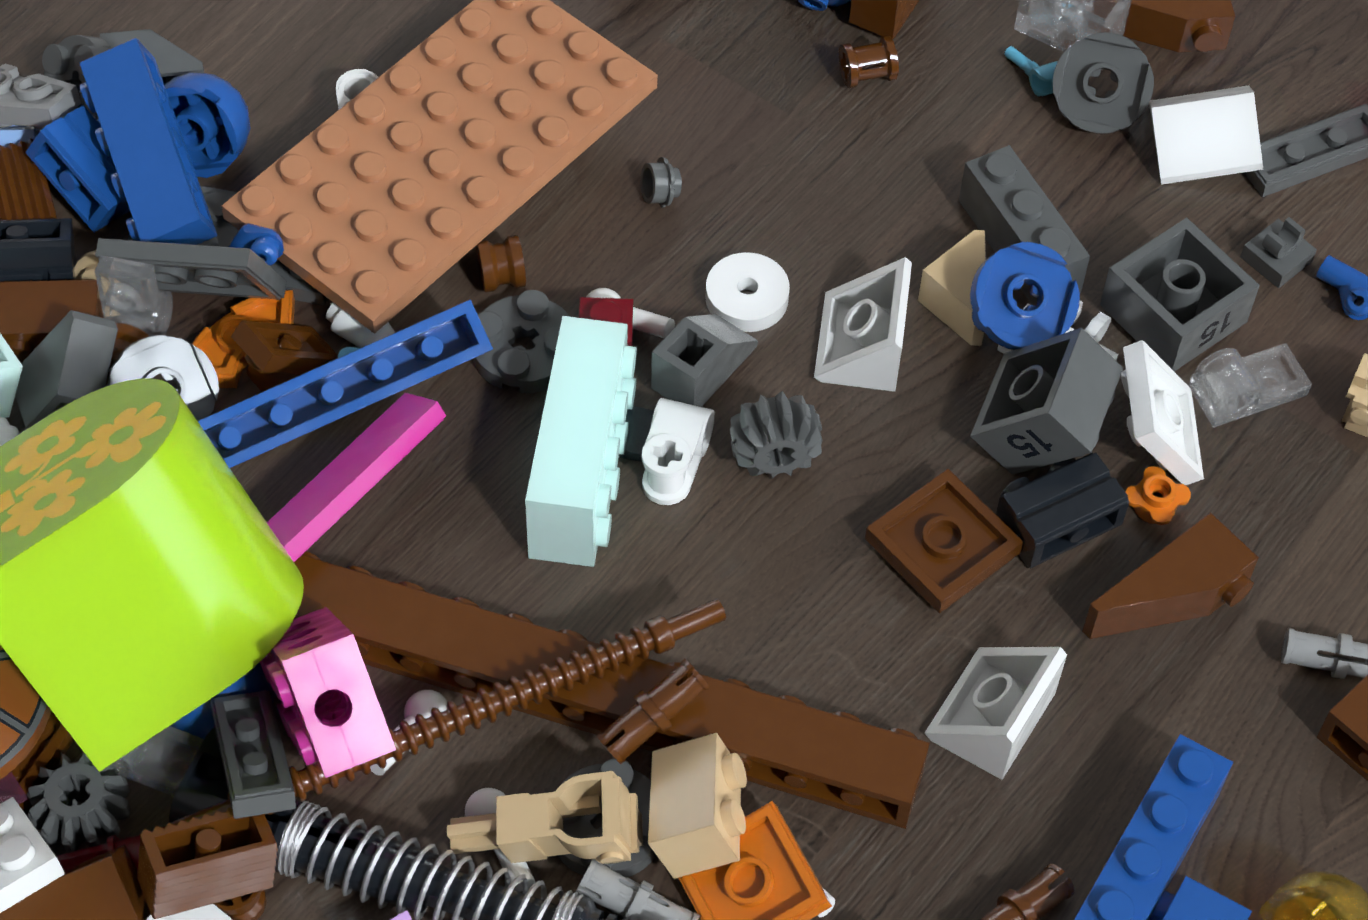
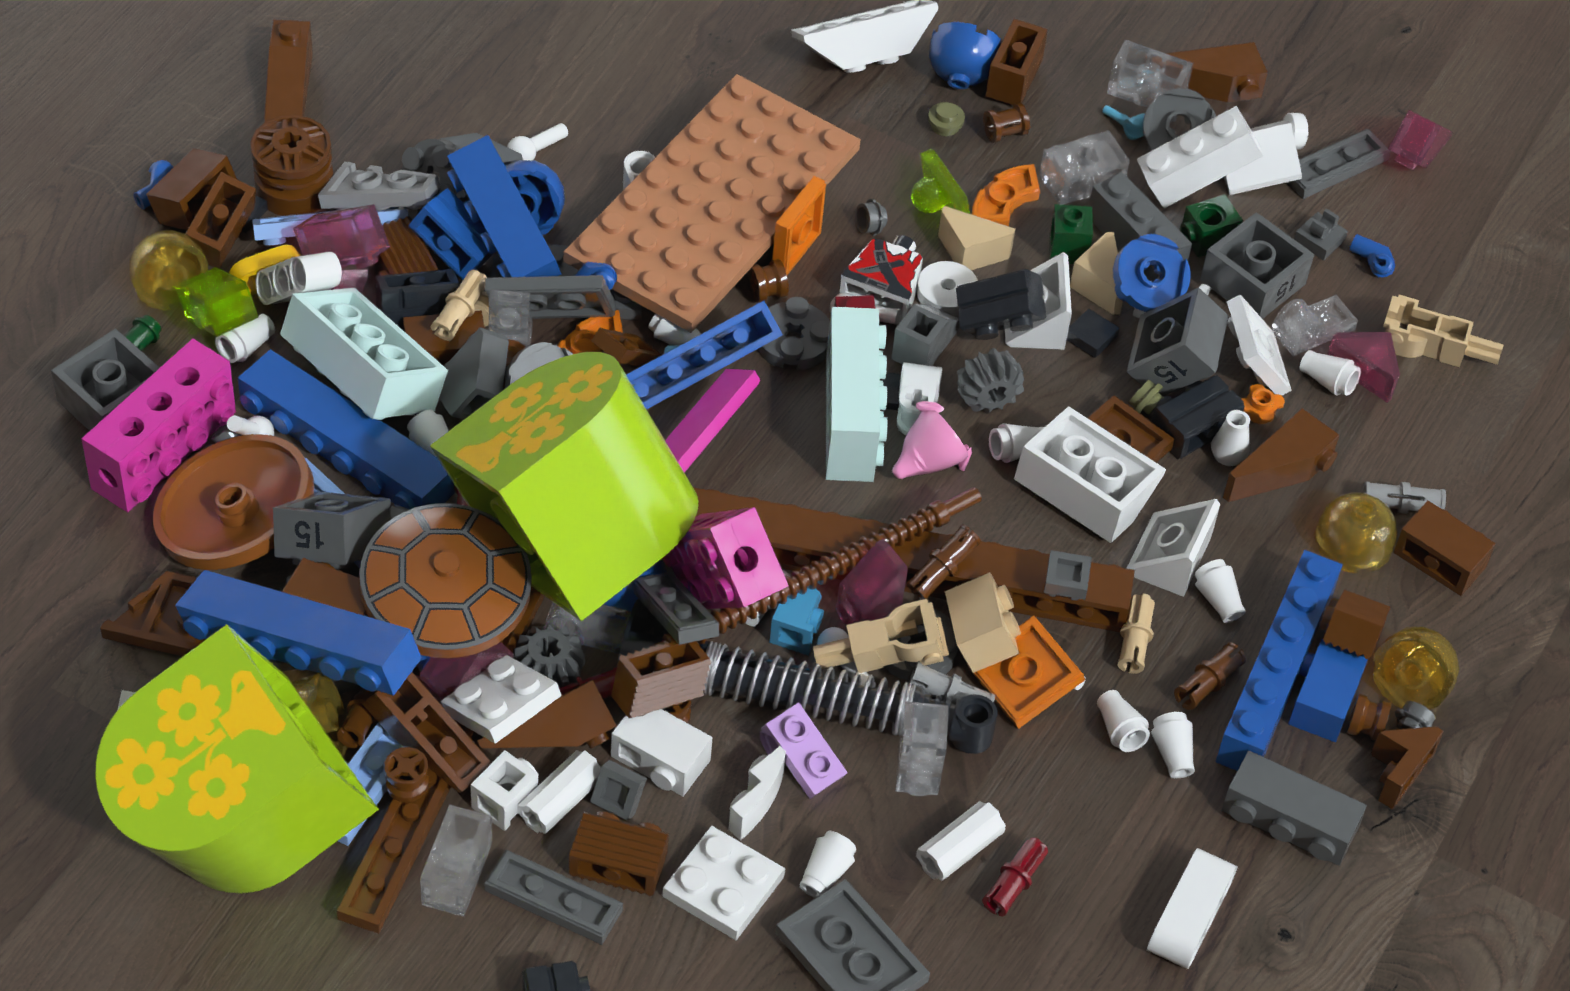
camera: 10 degrees left, 5 degrees down
(62, 273) = (459, 305): none -> tan axle
(218, 54) = (529, 146): none -> white bar
(439, 774) = (797, 621): none -> dark azure brick
(548, 739) = (872, 586): none -> clear pink slope
(552, 191) = (800, 224): none -> orange tile
(661, 266) = (886, 272): none -> torso
(675, 524) = (930, 445): none -> bright pink hat
(753, 152) = (937, 187): none -> clear neon green tile
(789, 50) = (946, 118): none -> olive plate
(795, 226) = (973, 239): none -> tan slope
(802, 526) = (1008, 441): none -> white cone
(809, 323) = (1001, 303): none -> black brick
(824, 749) = (1067, 575): none -> dark grey tile
(847, 164) = (1006, 193): none -> orange tile
(890, 586) = (1088, 473): none -> white slope
(922, 835) = (1136, 633): none -> tan axle
(927, 224) = (1070, 231): none -> dark green brick
(935, 371) = (1092, 333): none -> black tile
(959, 129) = (1077, 166): none -> clear brick
(994, 475) = (1146, 397): none -> olive plate
(1054, 777) = (1220, 588): none -> white cone
(1106, 549) = (1232, 441): none -> white cone
(1121, 131) = (1199, 157): none -> white brick
(1122, 225) = (1209, 222): none -> dark green brick
(1237, 856) = (1354, 623): none -> reddish brown brick
(1265, 457) = (1332, 372): none -> white cone
(1265, 706) = (1357, 532): none -> clear yellow cylinder
(1267, 98) = (1299, 127): none -> white tile
(1317, 443) = (1373, 355): none -> clear pink slope

